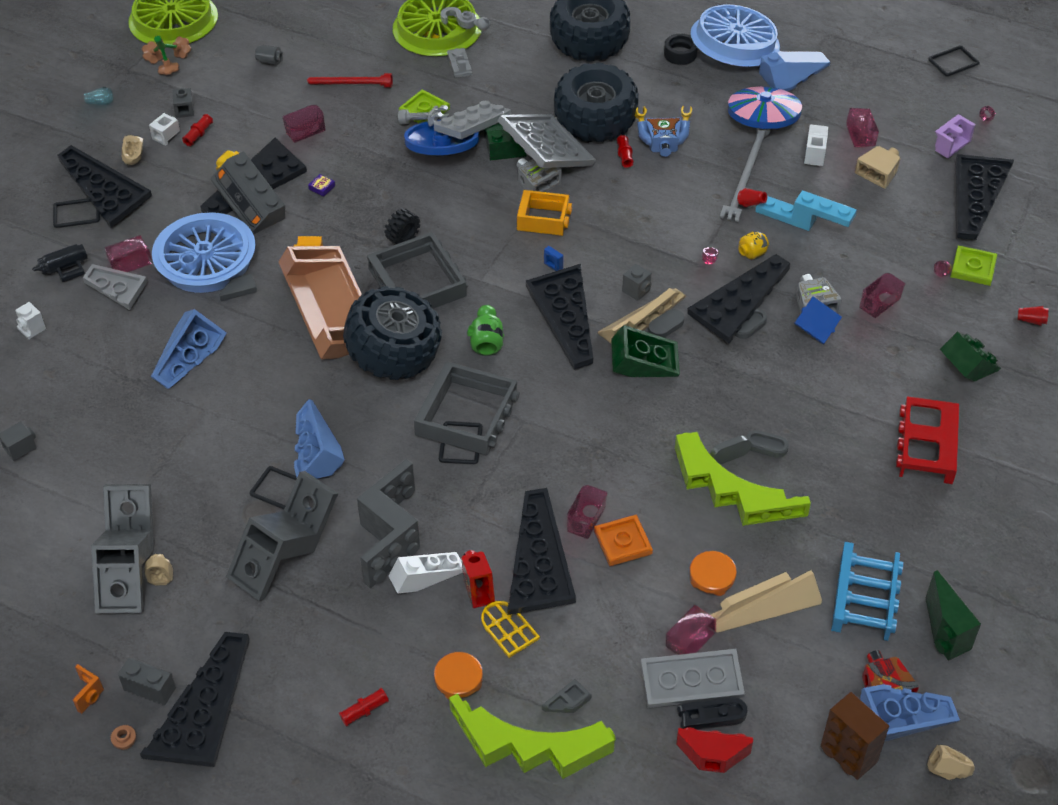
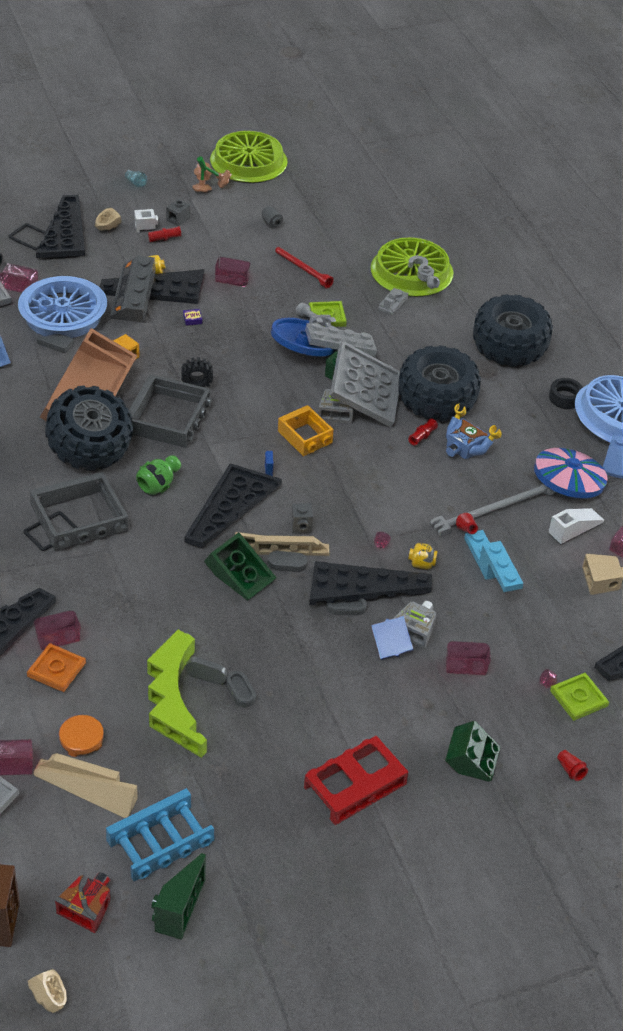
camera: 40 degrees right, 5 degrees down
(908, 711) = (60, 925): medium blue wedge -> none

